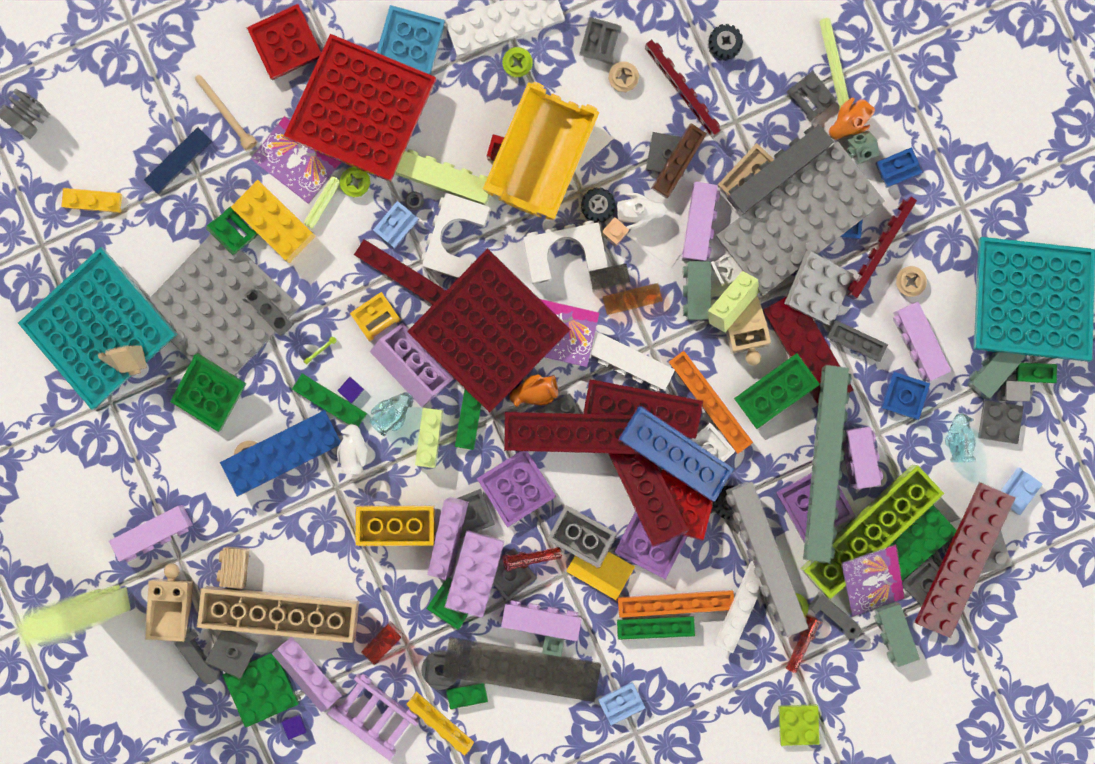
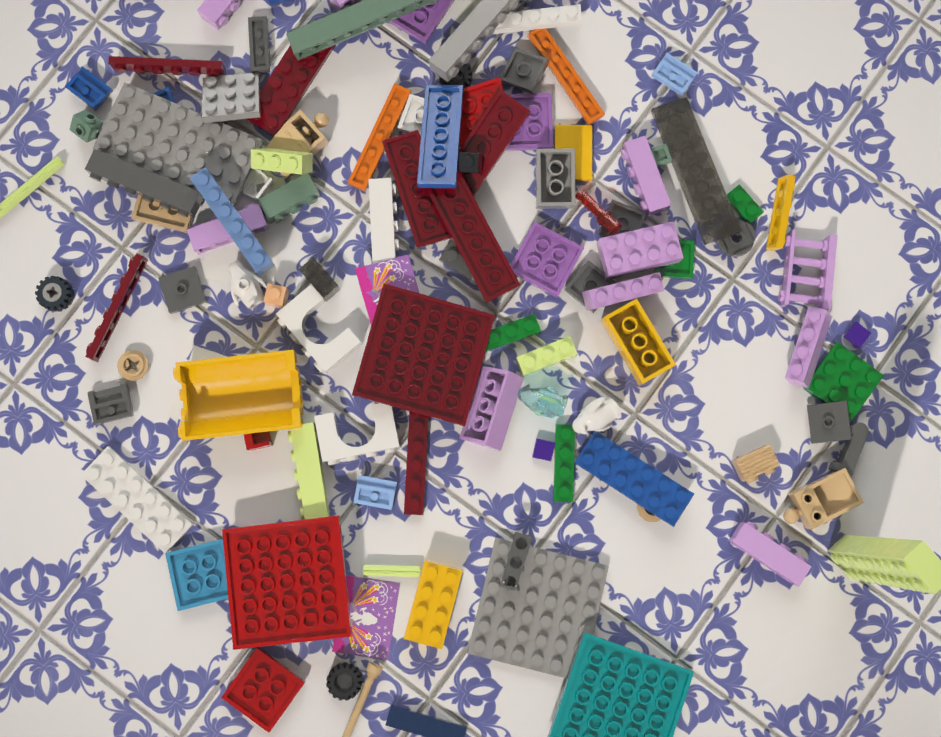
camera: 130 degrees left, 5 degrees down
(125, 359) = (633, 664): tan slope -> none
(208, 392) = (618, 574): green plate -> none
(227, 234) = (468, 638): green plate -> none
(250, 101) = (353, 690): none -> black tyre
(278, 614) = (773, 400): tan brick -> none
(332, 340) = (509, 491): lime hinge -> none
(346, 179) = (367, 551): lime gear -> none
(373, 310) = (464, 470): yellow plate -> none
(382, 643) = (736, 294): clear red piece -> none
(410, 196) = (340, 484): dark grey plate -> none
(518, 53) = (162, 471): lime gear -> none
(535, 391) = (453, 287): orange animal -> none
(601, 199) = (258, 318): black wheel -> none
(632, 299) = (327, 250): clear orange plate -> none
(636, 466) = (470, 163): none -> black brick
(655, 627) = (595, 80): green plate -> none
(678, 161) = (183, 275): reddish brown tile -> none
(699, 227) = (232, 221): none -> medium blue brick
(700, 567) = (524, 70): none -> dark grey plate
(776, 391) = (339, 86): green plate -> none
(816, 93) = (59, 192): dark grey plate -> none
(852, 119) = (65, 148): orange animal -> none
(911, 272) = (179, 21): tan gear -> none

